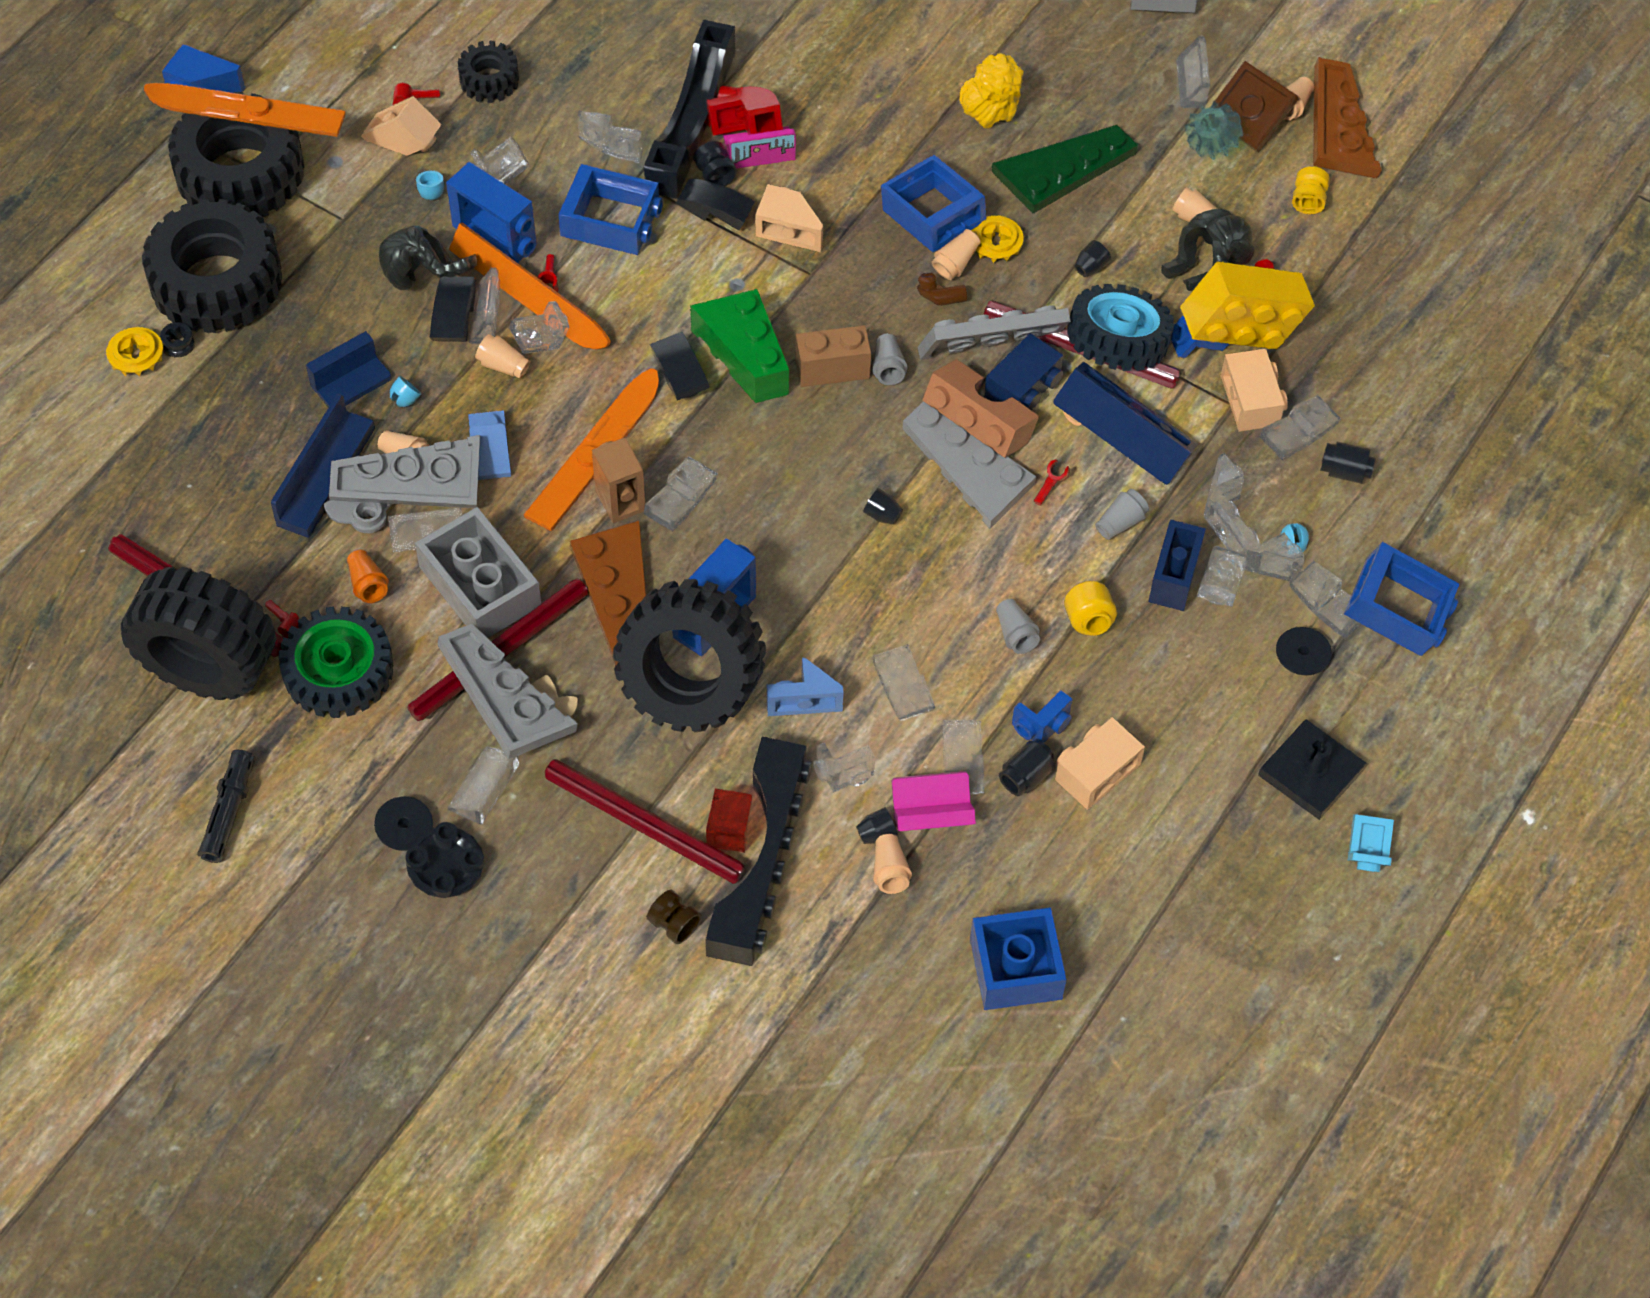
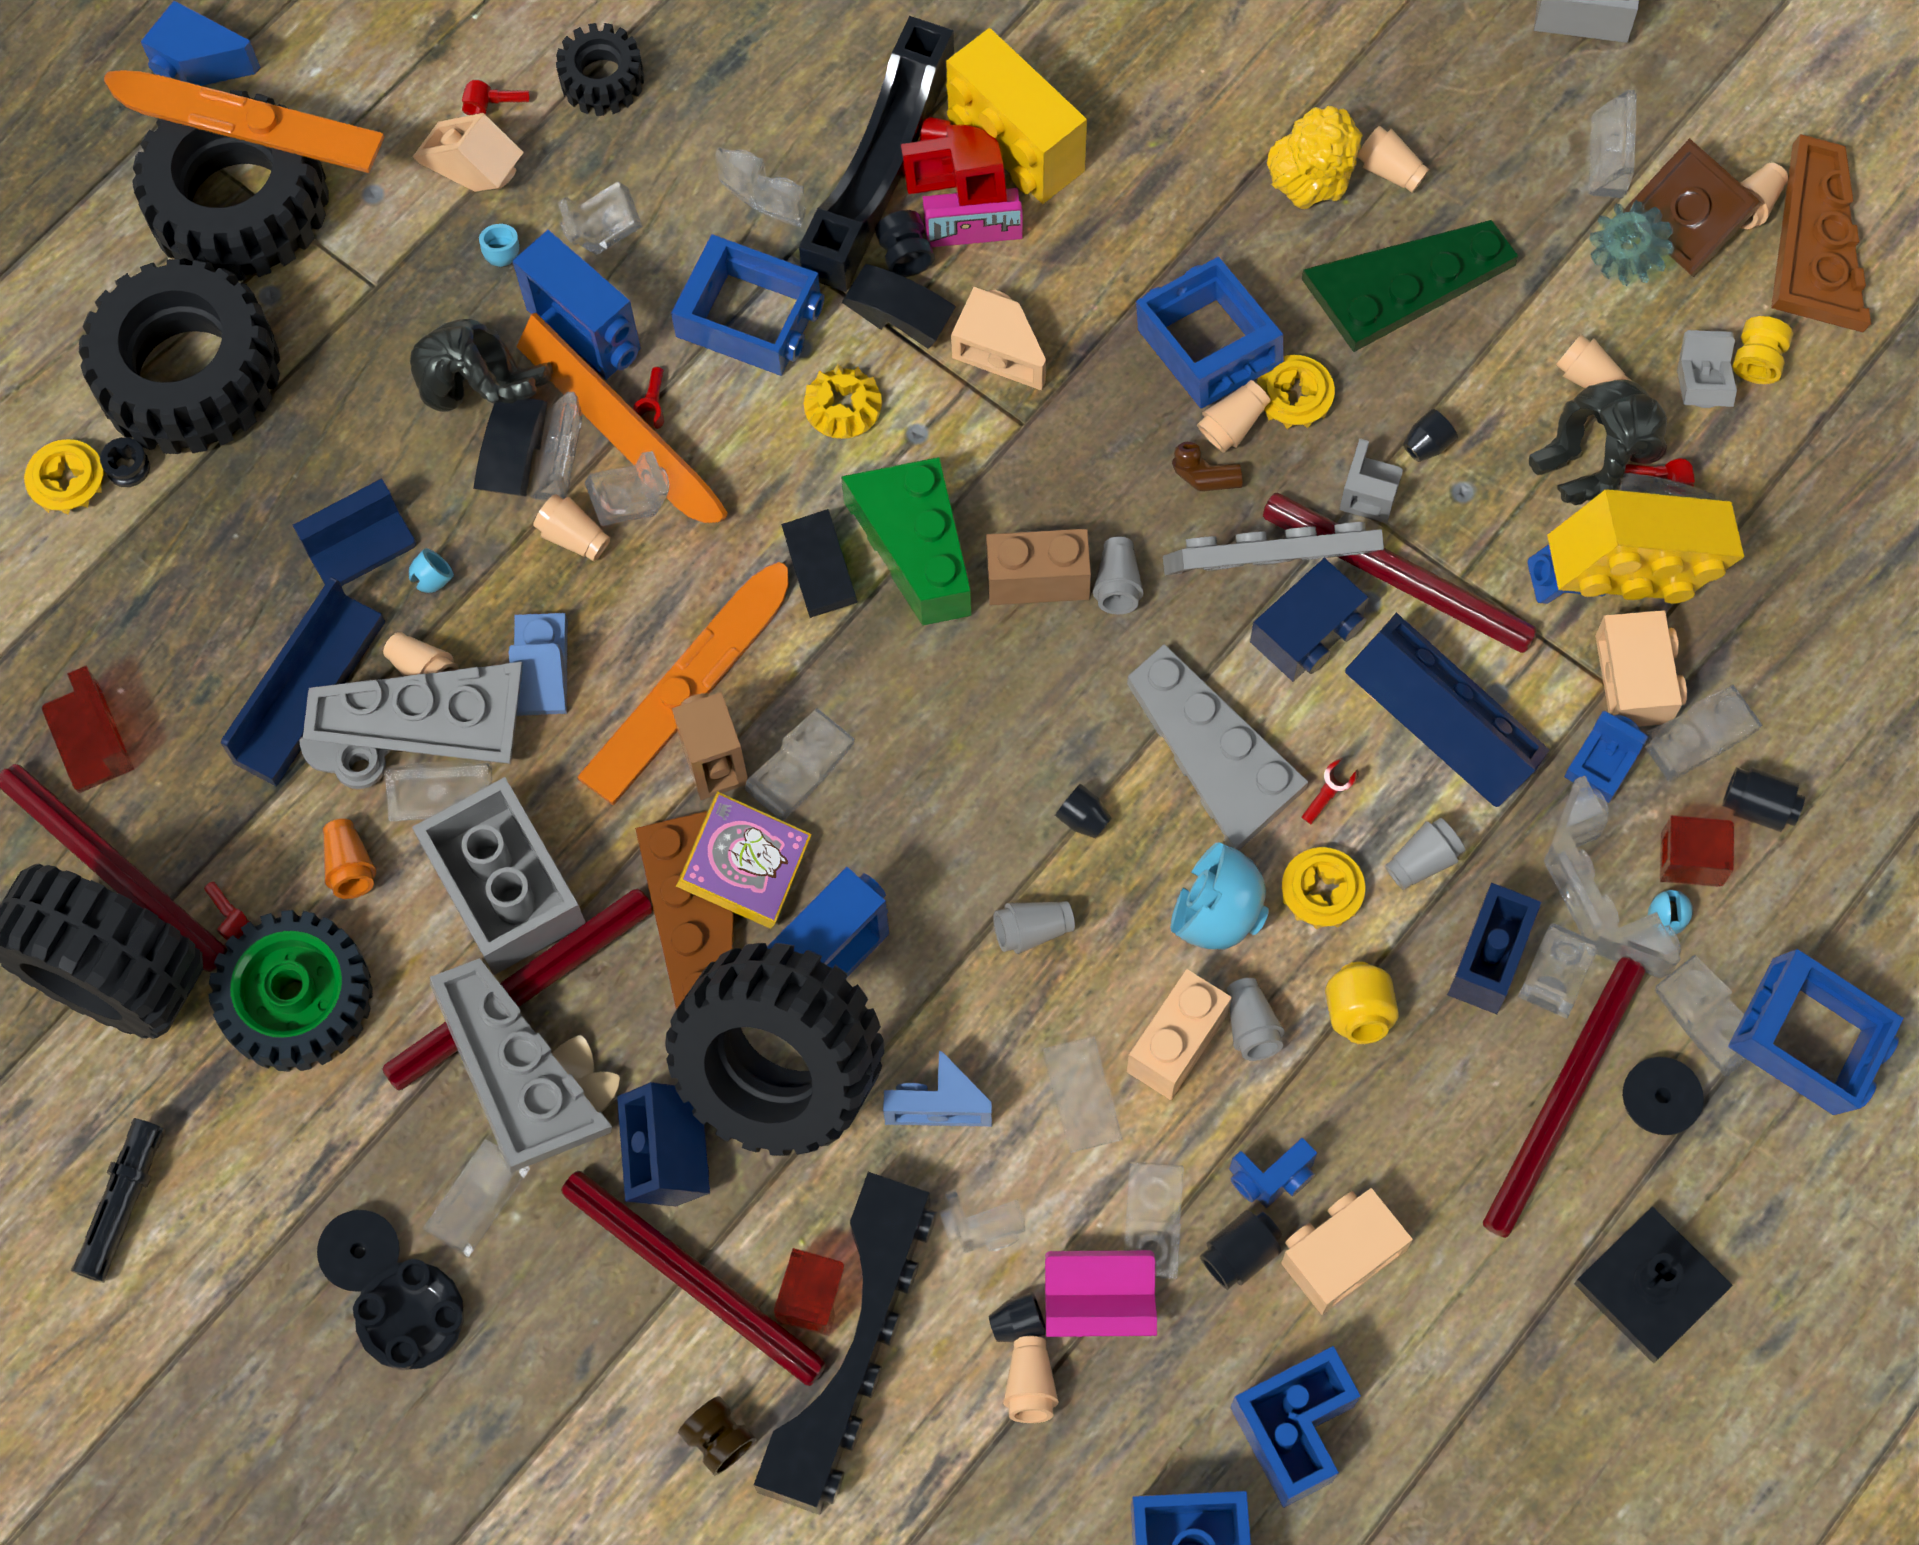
camera: 10 degrees right, 10 degrees up
(170, 512) = (87, 733): none -> clear red panel
(614, 734) = (661, 1147): none -> dark blue brick
(648, 551) = (744, 860): none -> tile
(682, 277) = (838, 420): none -> yellow gear
(793, 74) = (1033, 123): none -> yellow brick
(854, 579) = (1031, 924): none -> light grey cone
(966, 637) = (1178, 1034): none -> light nougat brick
(987, 551) = (1222, 902): none -> medium azure cylinder
(999, 425) = (1261, 699): nougat arch -> none
(1044, 92) = (1392, 159): none -> light nougat cone
(1054, 290) = (1370, 486): none -> light grey panel
(1060, 530) = (1332, 867): none -> yellow gear
(1072, 868) = (1282, 1421): none -> blue brick
(1120, 327) = (1457, 557): black wheel -> none
(1236, 658) = (1563, 1097): none -> dark red axle
(1239, 440) = (1608, 753): none -> blue bracket
(1274, 203) = (1706, 369): none -> light grey bracket
(1306, 497) = (1697, 851): none -> clear red panel
(1370, 842) = (1723, 1417): medium azure bracket -> none

